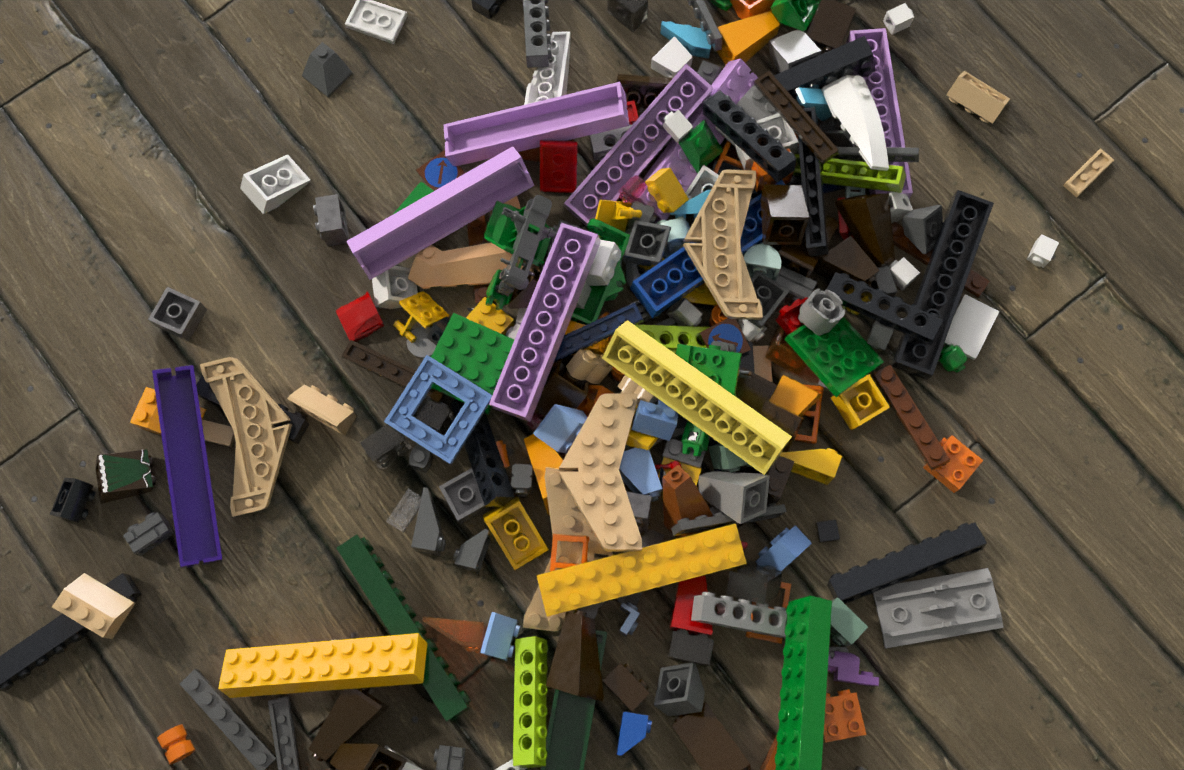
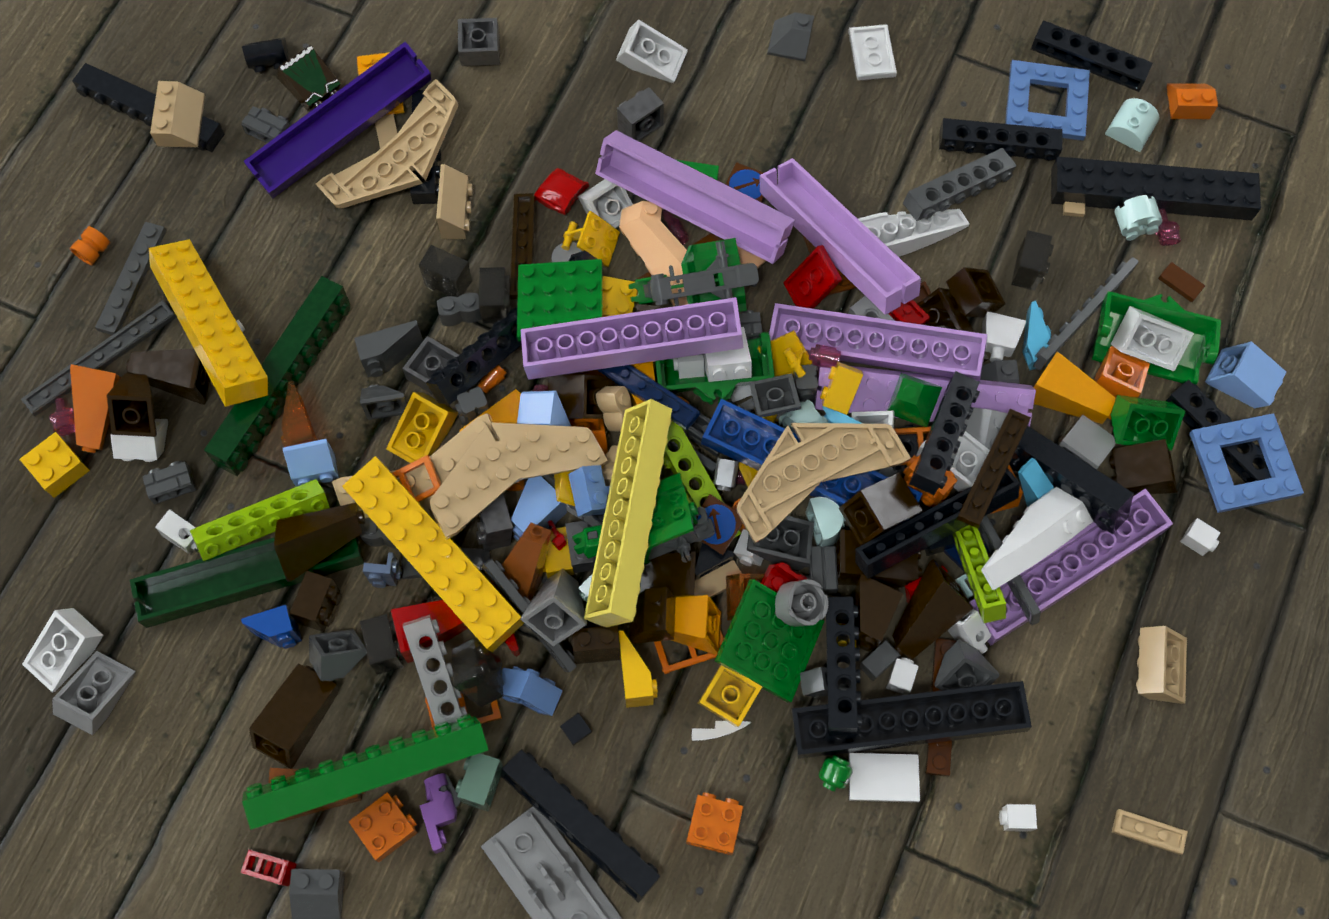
camera: 60 degrees right, 5 degrees down
(402, 413) = (471, 265): medium blue plate -> none
(405, 511) = (386, 320): clear plate -> none
(449, 244) = (675, 227): none -> clear pink piece
(632, 58) = (975, 292): none -> dark brown brick
(677, 125) = (915, 360): white brick -> none
(876, 422) = (721, 728): none -> white sticker
(911, 417) = (740, 755): reddish brown plate -> none

